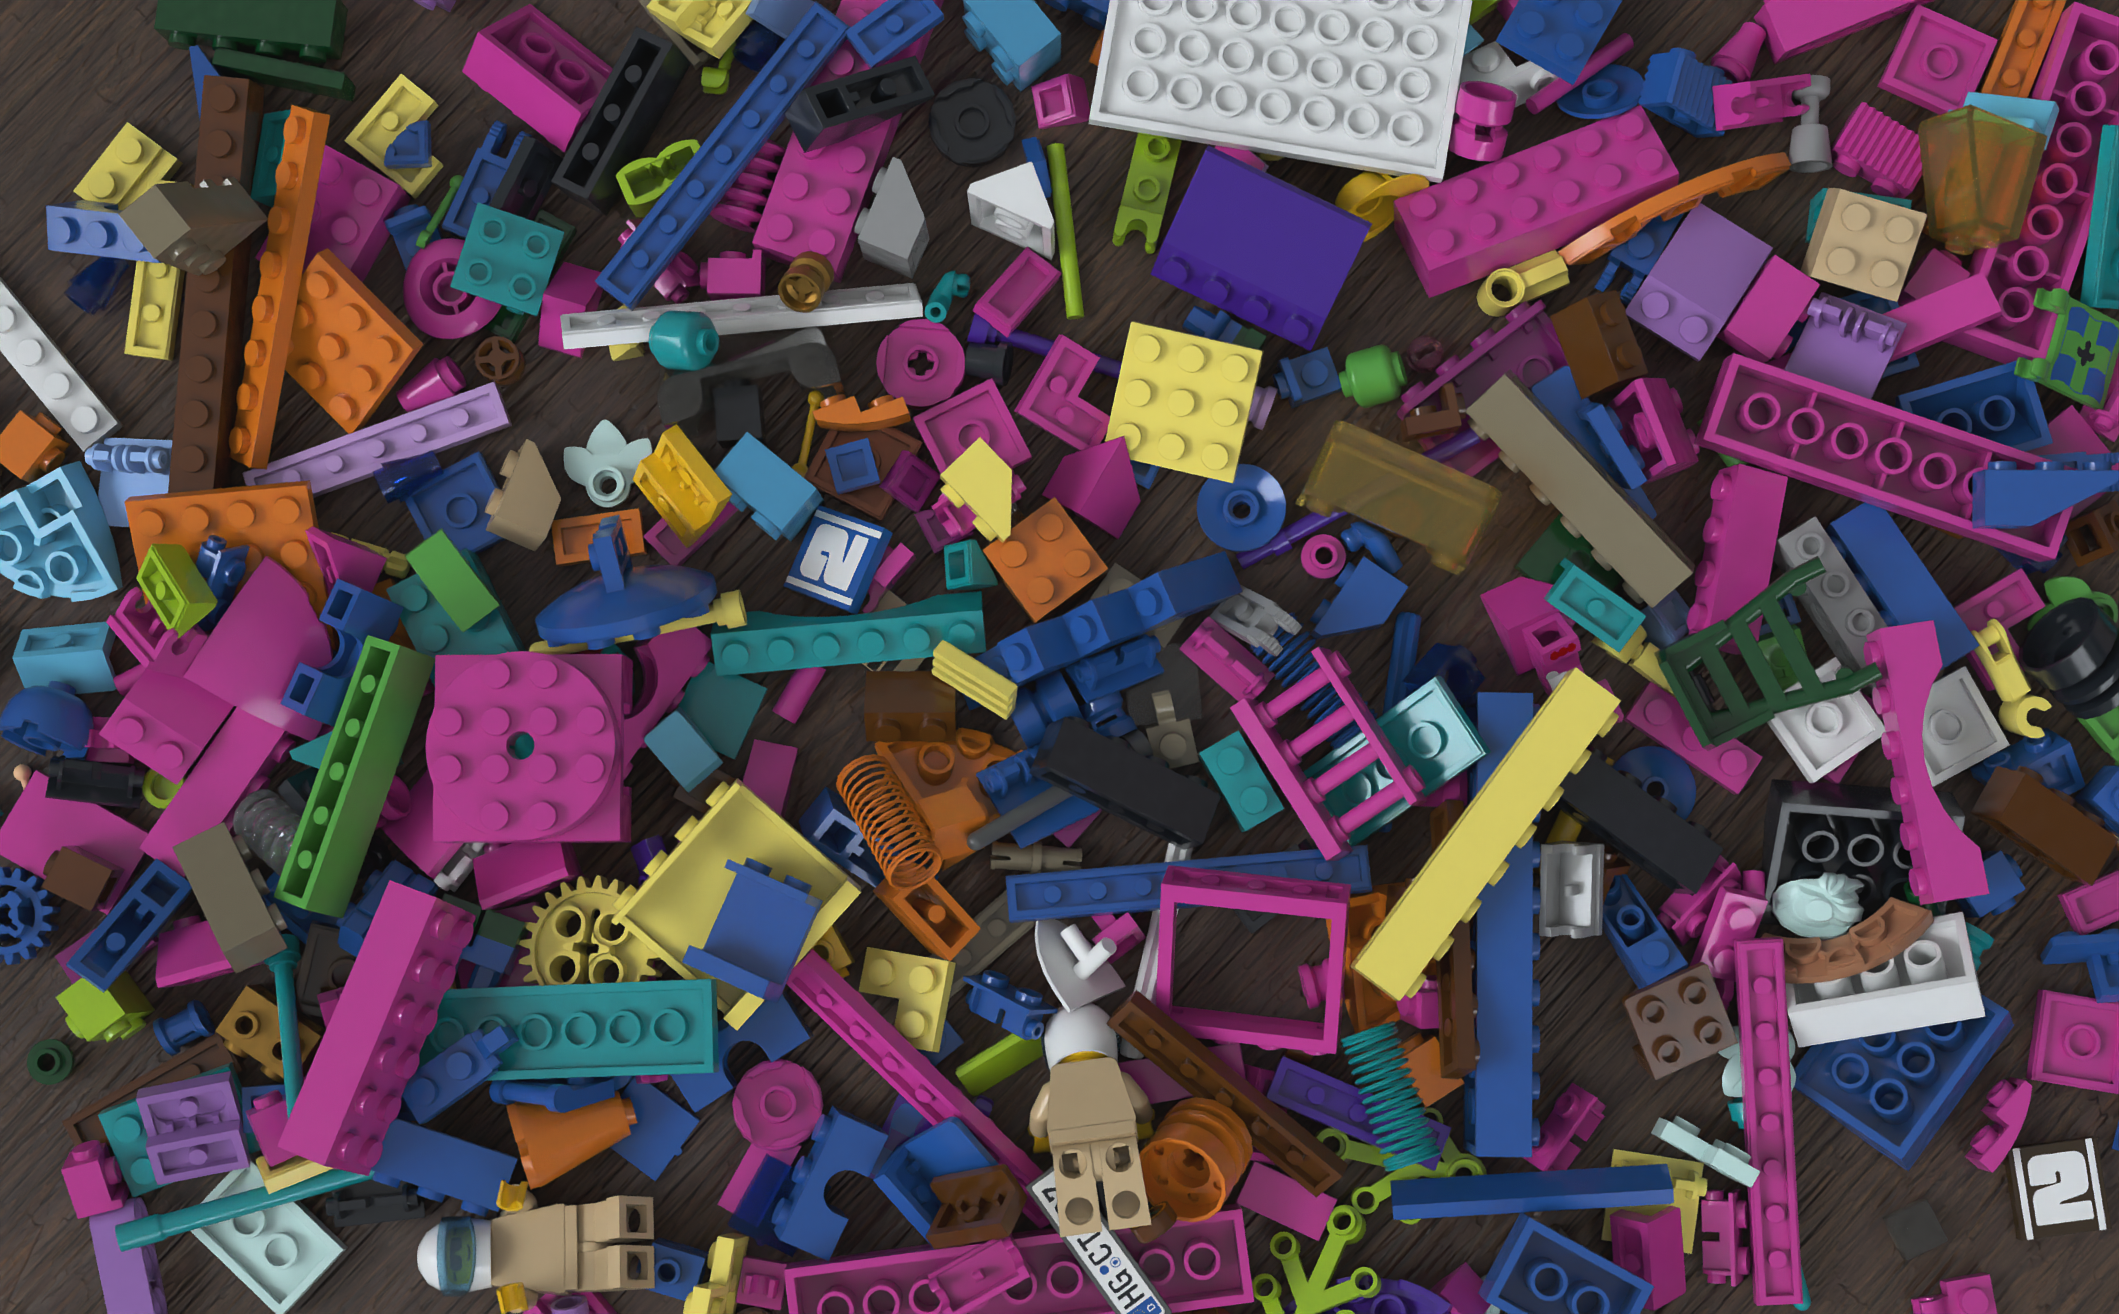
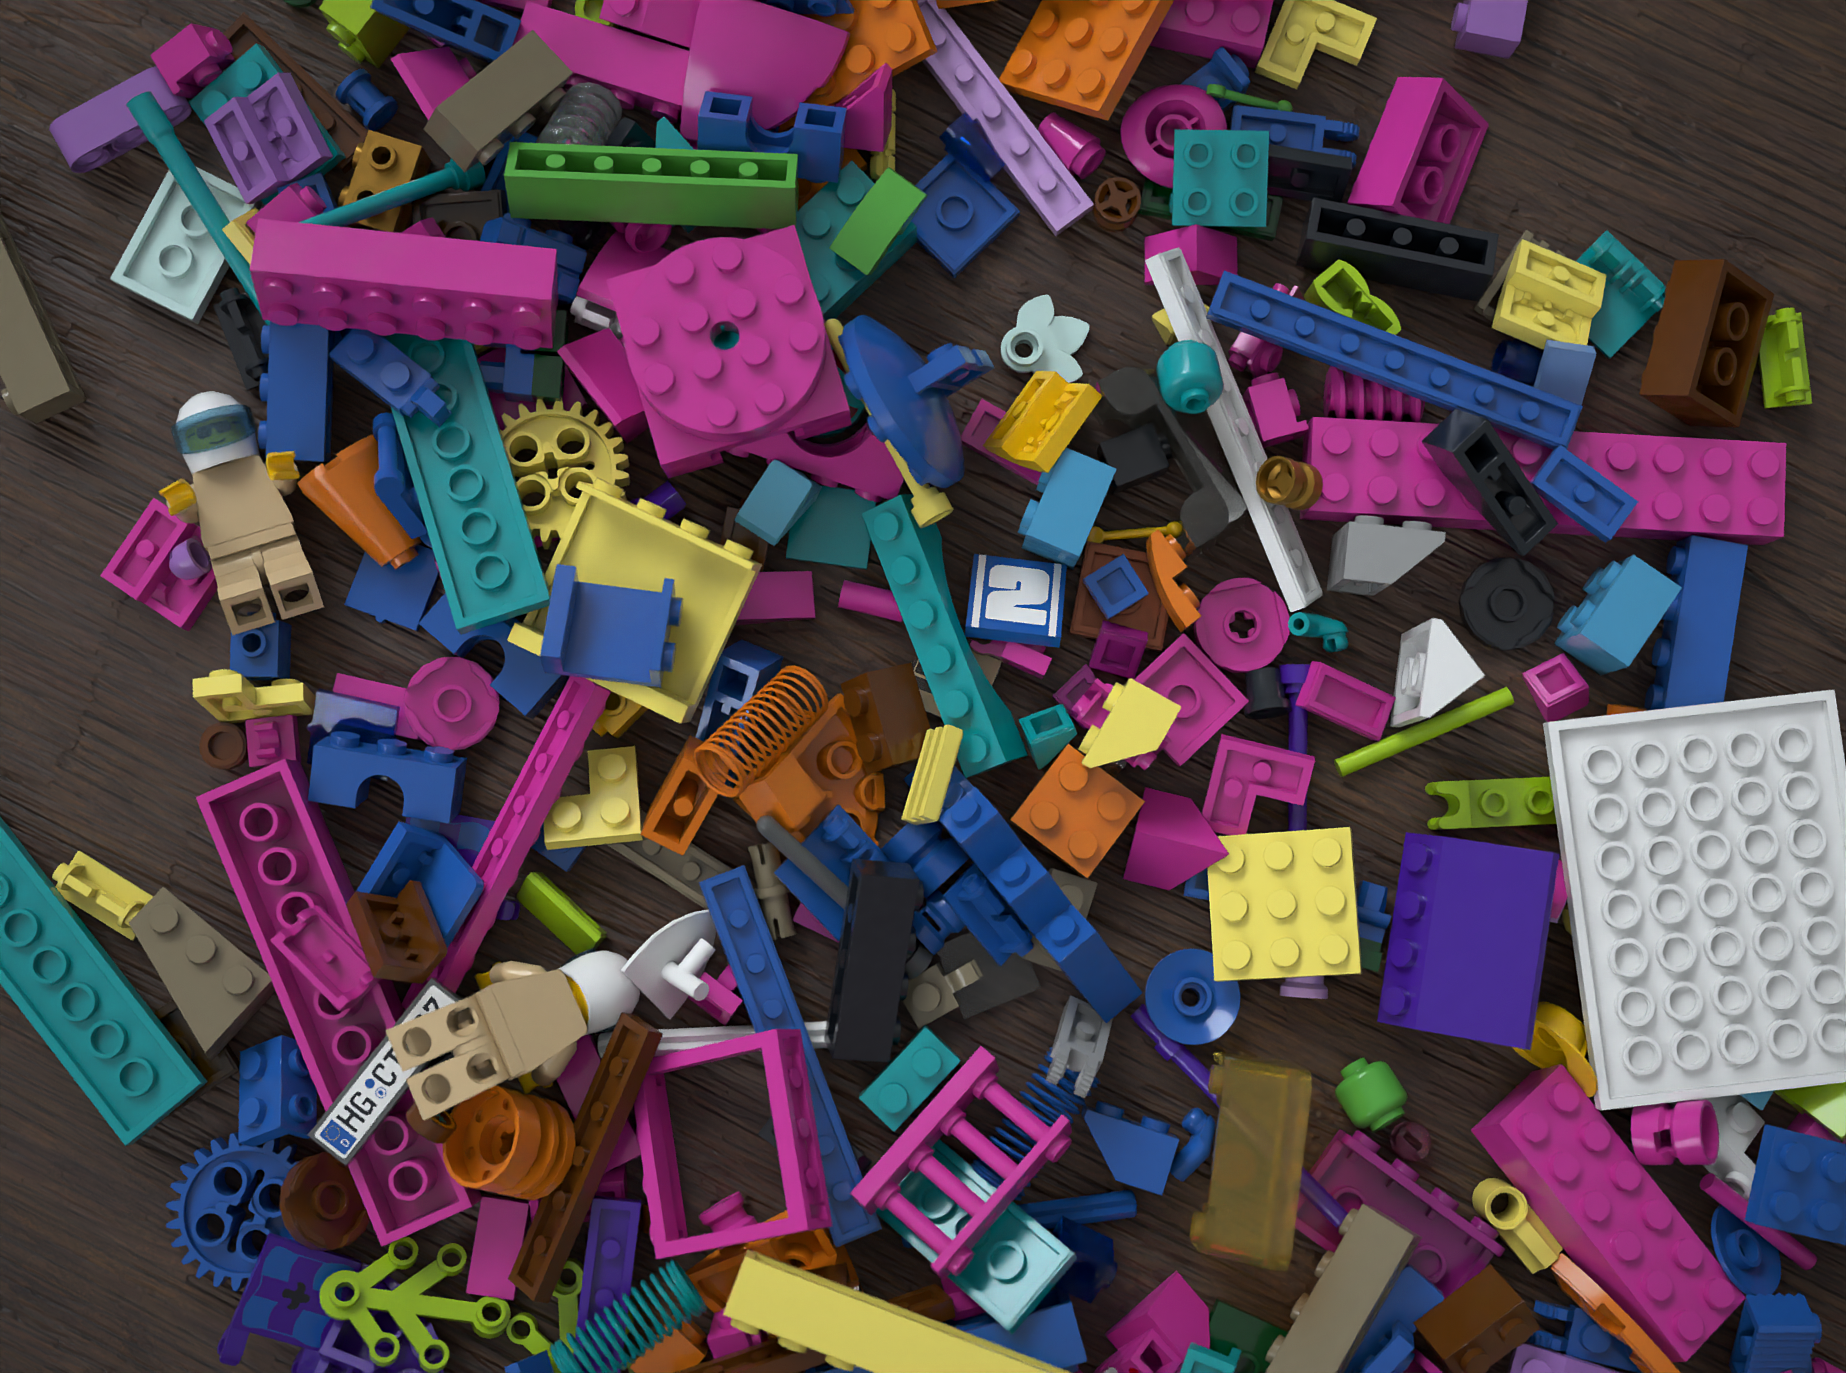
camera: 70 degrees right, 0 degrees up
(411, 148) = (1304, 50): blue tile -> none
(527, 500) = (982, 272): tan slope -> none
(574, 534) = (964, 329): orange plate -> none
(717, 79) = (1469, 333): lime hand -> none
(1022, 1005) = (620, 889): blue hinge -> none
(1034, 153) = (1493, 677): blue tile -> none
(1226, 661) = (1029, 1027): dark pink hinge -> none
(1306, 377) = (1348, 1025): blue bracket -> none
(1319, 570) = (1156, 1085): dark pink plate -> none
(1427, 422) = (1339, 1168): reddish brown bracket -> none

